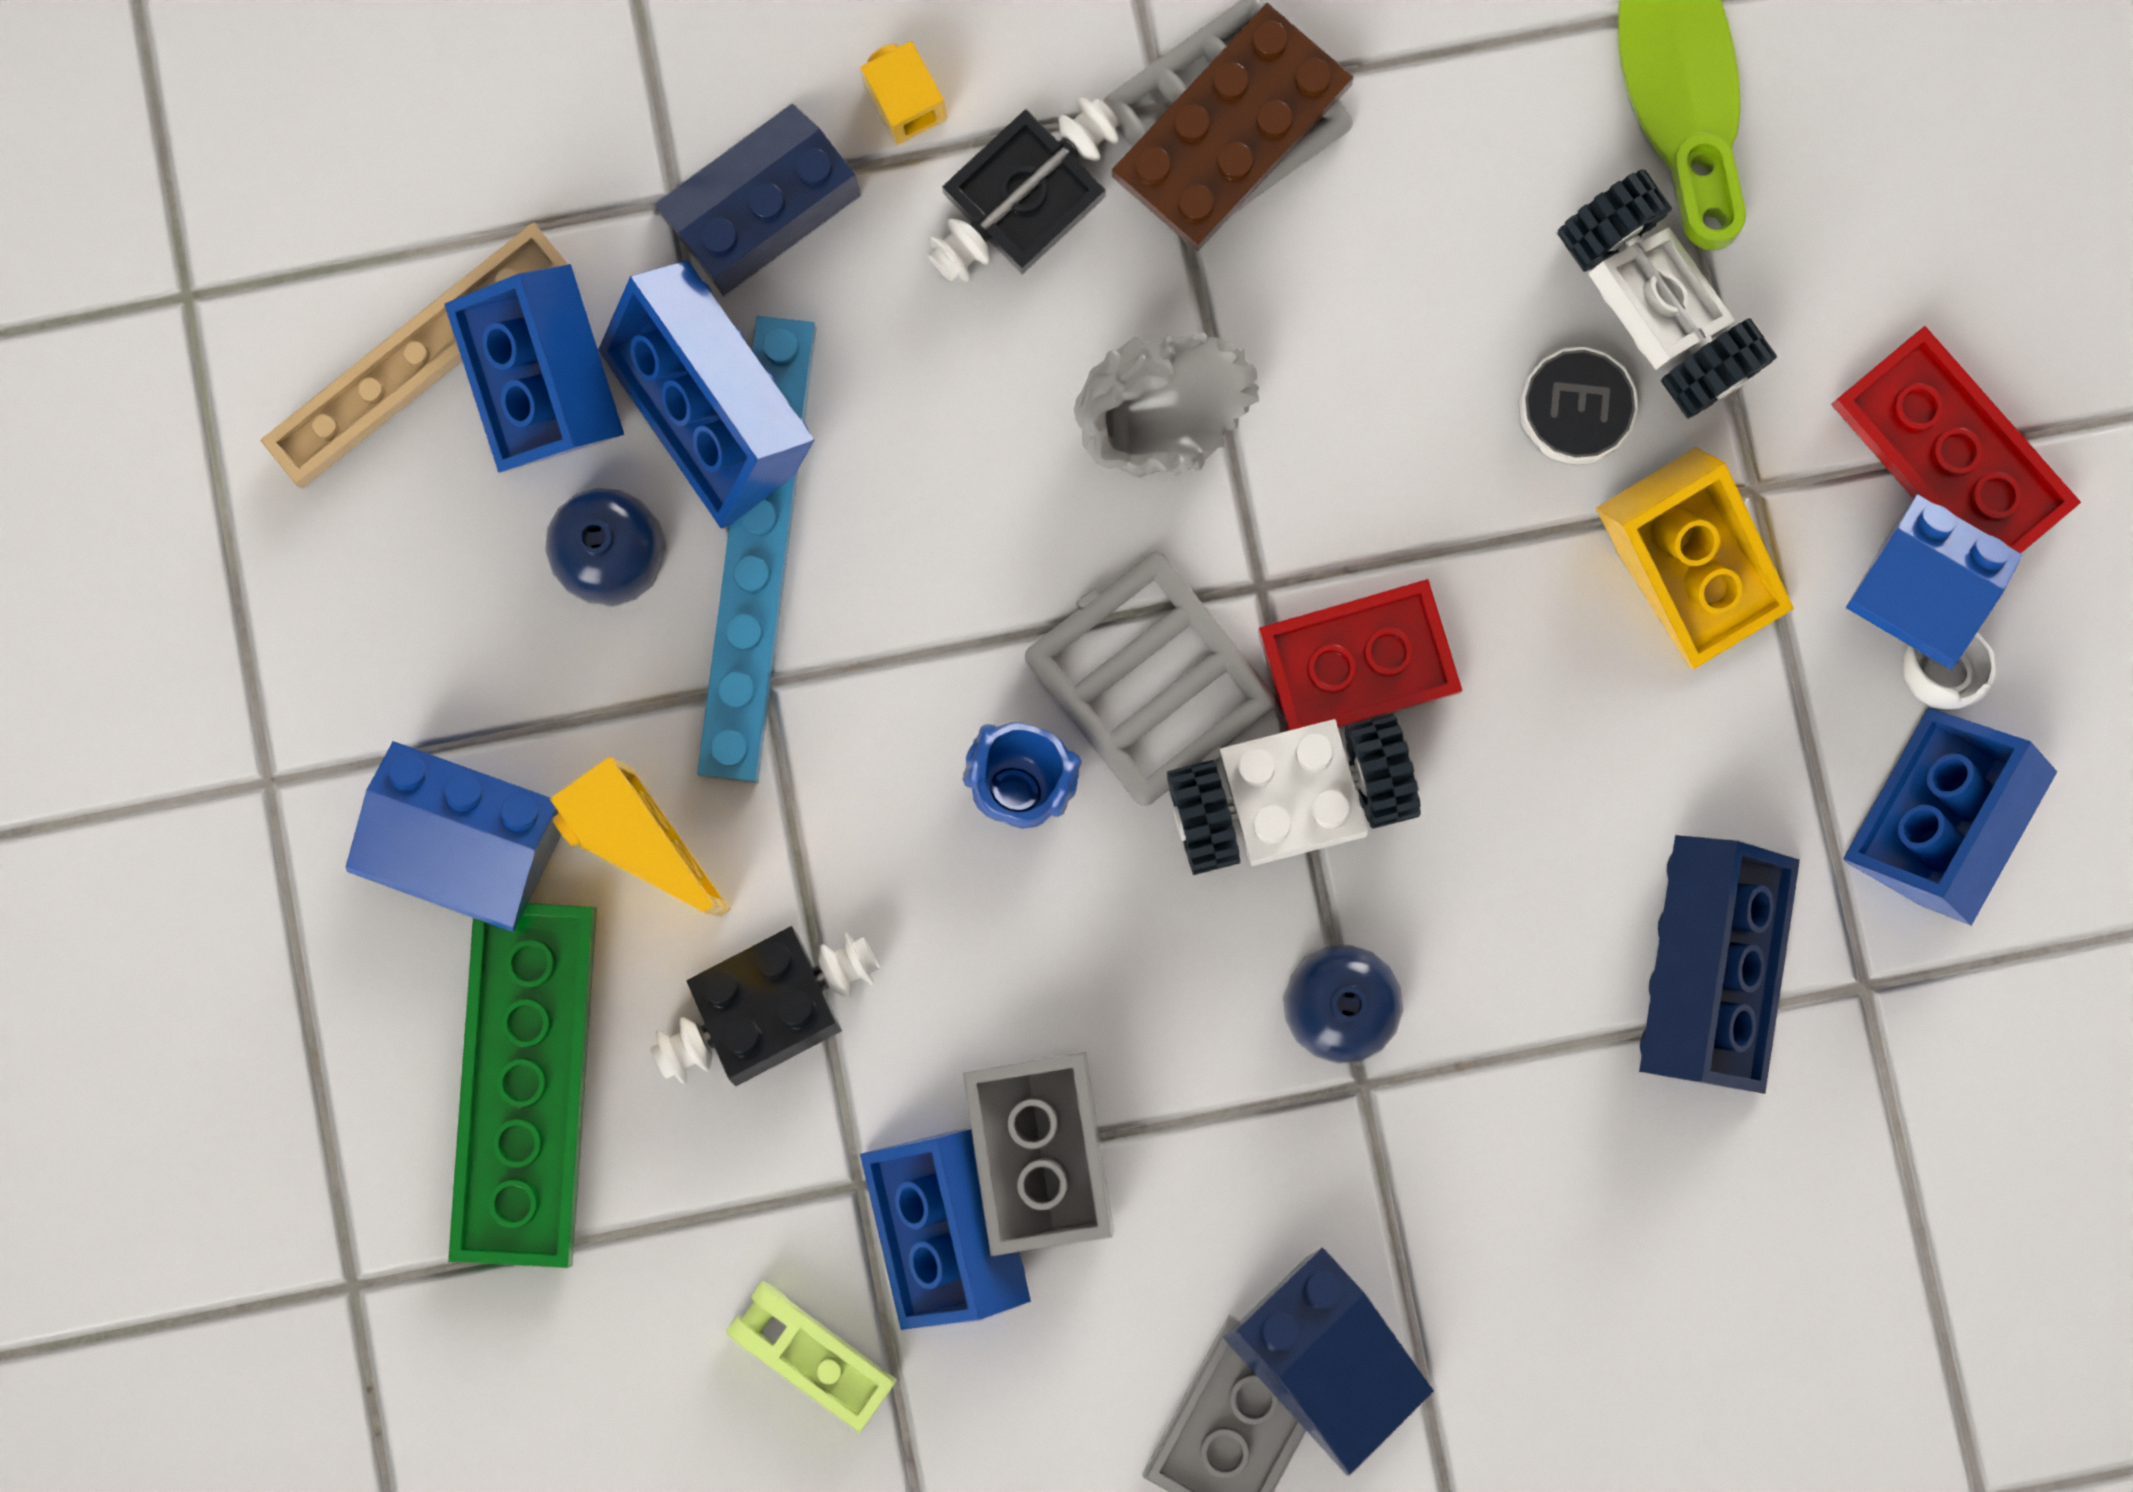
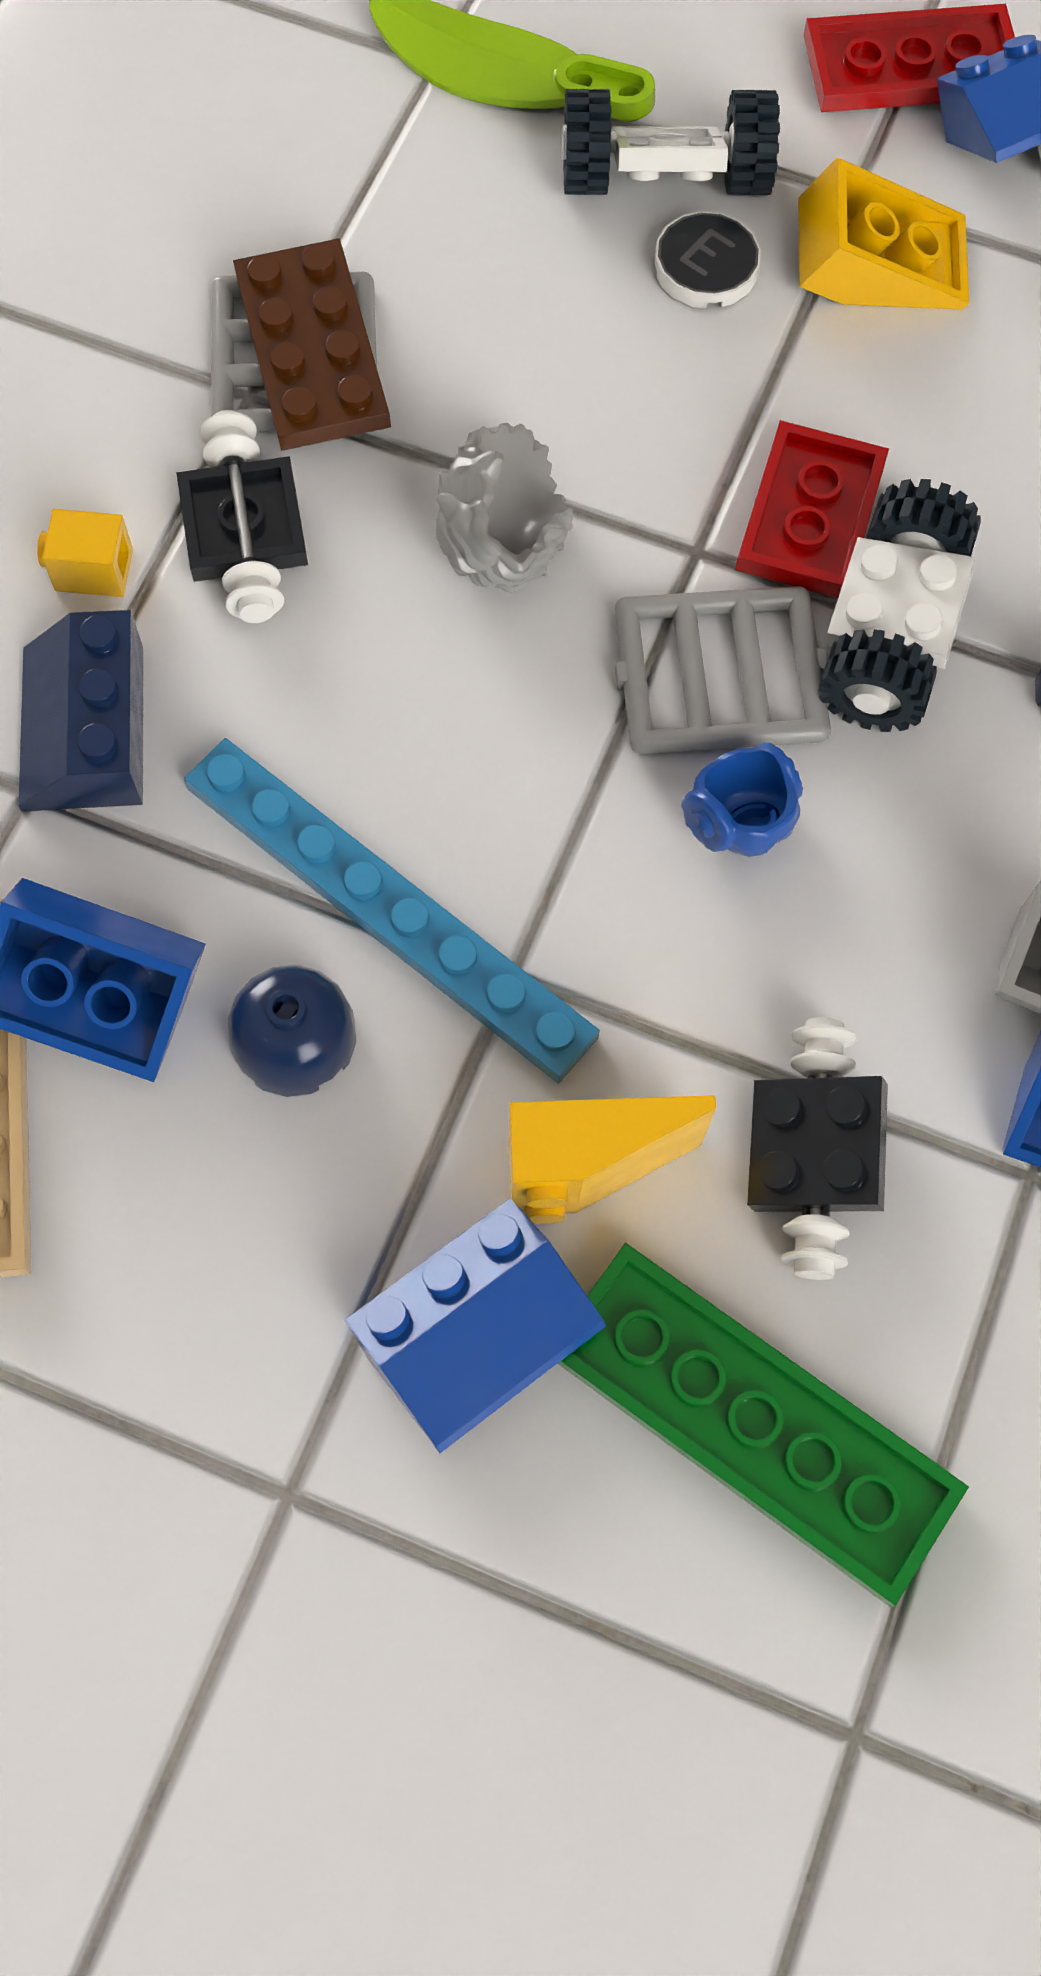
camera: 65 degrees left, 15 degrees down
(703, 391) = (222, 847): blue slope -> none

